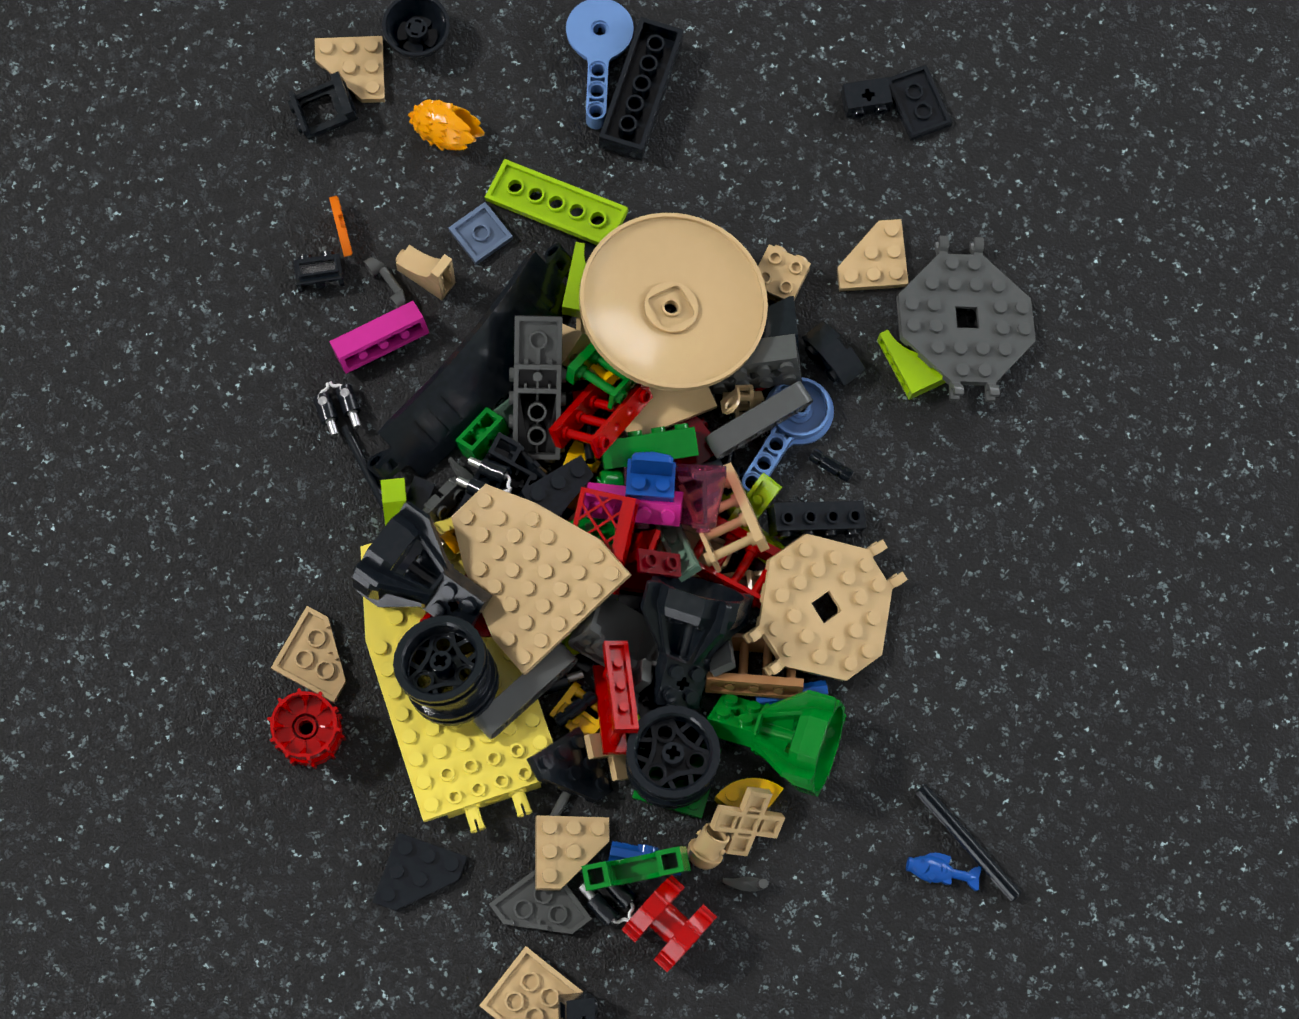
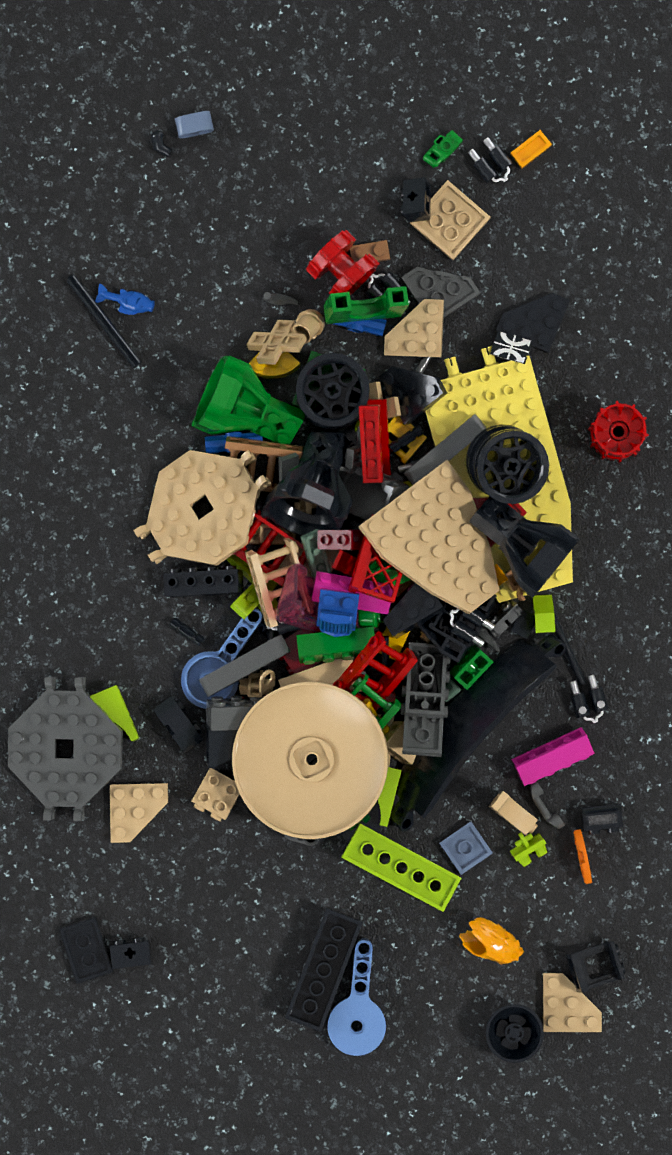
camera: 170 degrees left, 10 degrees up
(312, 656) = (612, 494): tan plate -> none
(408, 234) = (526, 846): none -> lime hips
(446, 831) = (511, 347): none -> sticker
(630, 952) = (378, 250): none -> medium nougat plate

